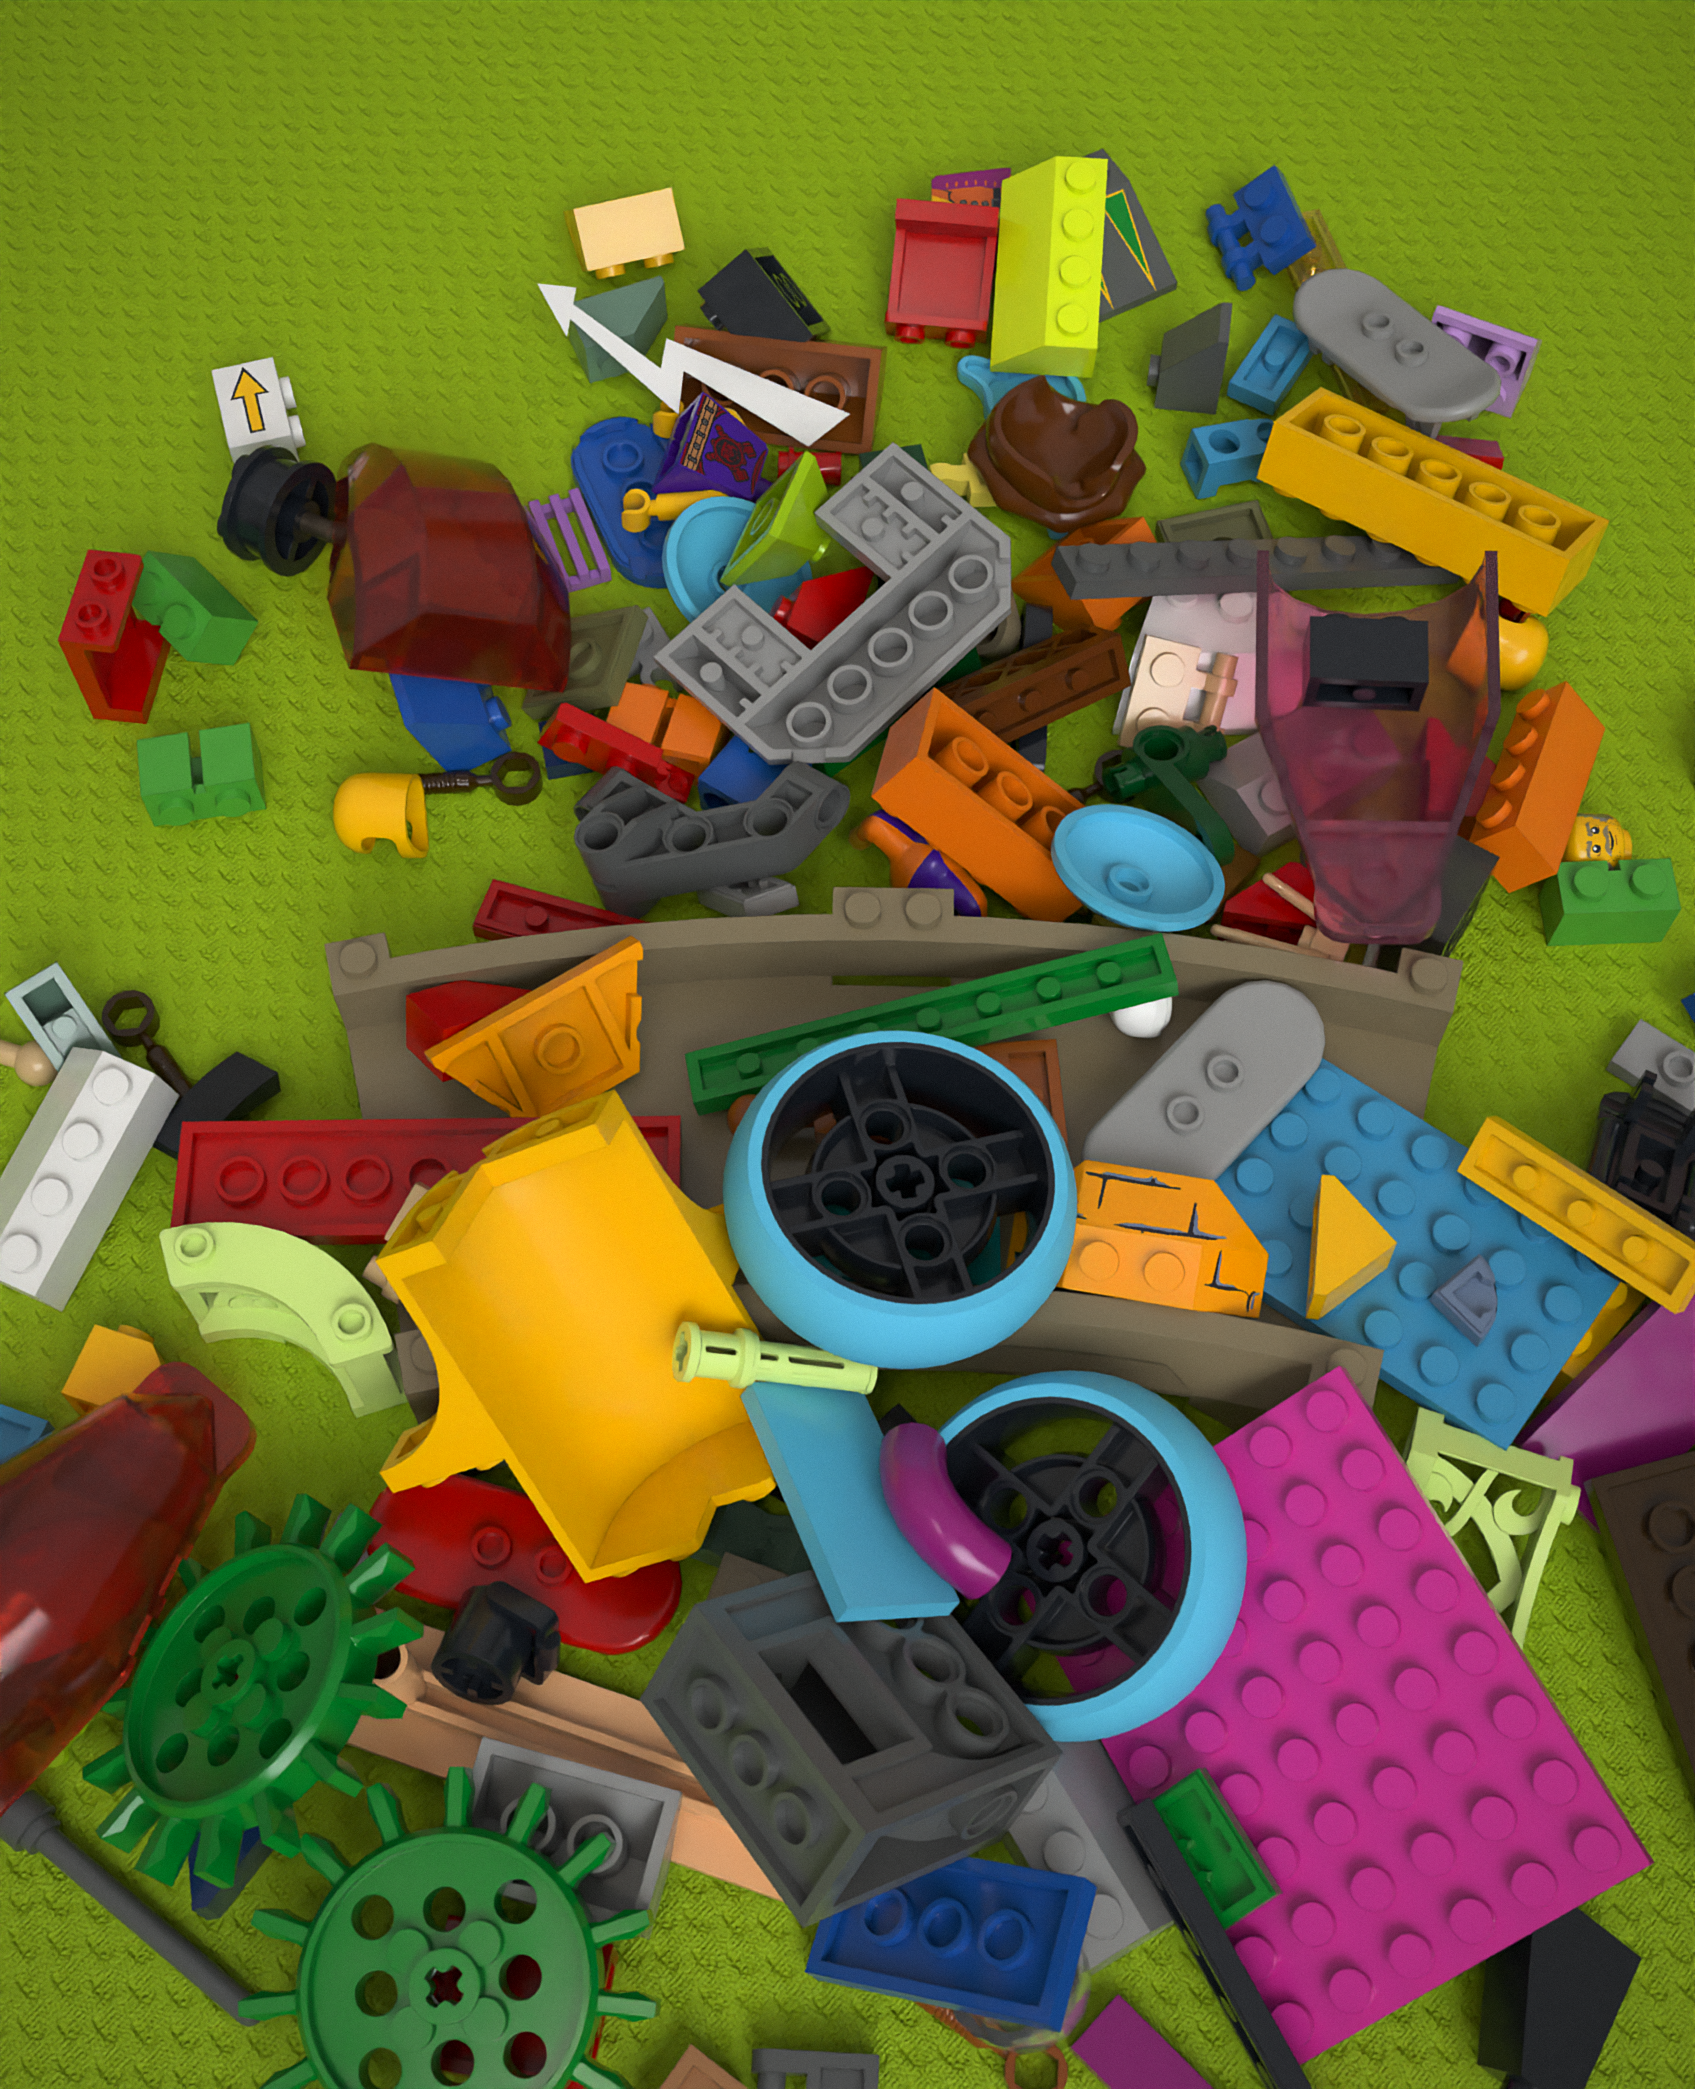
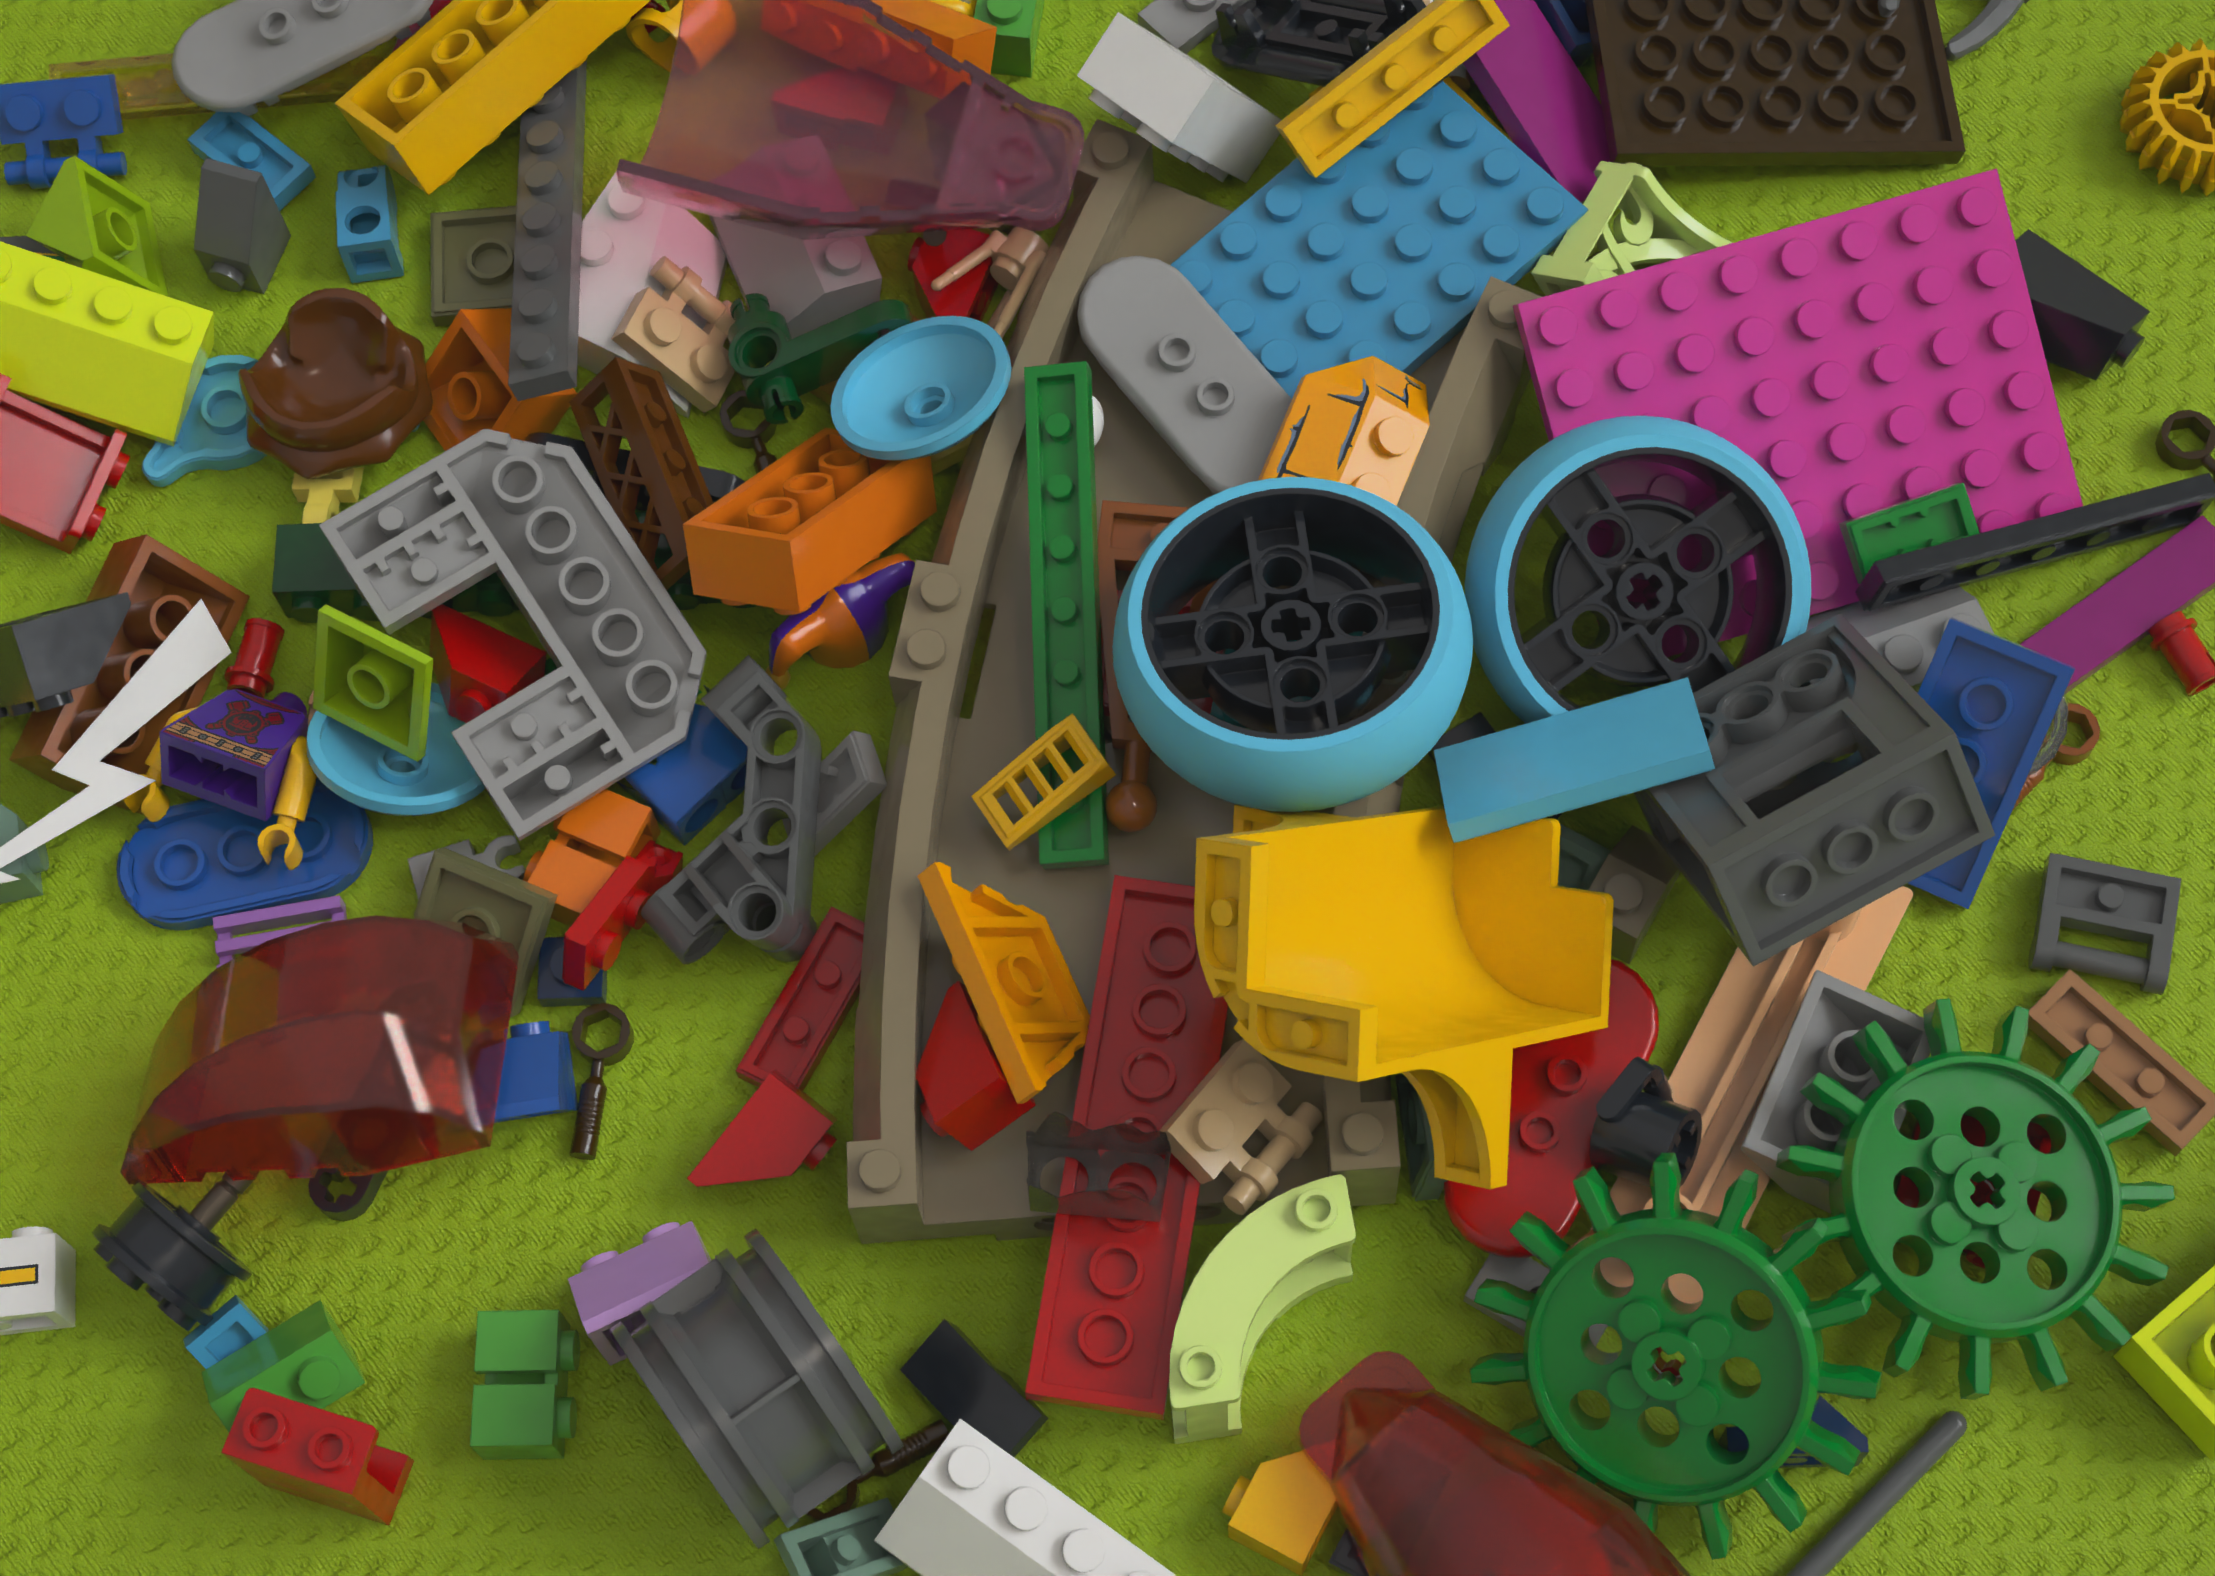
camera: 75 degrees left, 5 degrees up
(171, 914) = (757, 1387): none -> dark grey wheel
(229, 568) = (227, 1332): none -> dark azure plate
(282, 842) = (619, 1284): none -> lavender slope
(353, 1091) = (1068, 1138): none -> clear smoke piece
(378, 807) = (629, 1178): yellow helmet -> none
(427, 905) = (769, 1137): none -> red slope
(745, 1358) = (1441, 823): yellowish green pin -> none
(793, 1037) = (1028, 764): none -> yellow slope
(934, 1514) = (1604, 677): magenta cylinder -> none
(1160, 274) = (100, 227): none -> lime slope
(1345, 1248) = (1383, 290): yellow slope -> none
(1365, 663) = (739, 120): black brick -> none
(1469, 1299) = (1446, 198): sand blue tile -> none
(1514, 1029) = (1178, 102): none -> white brick

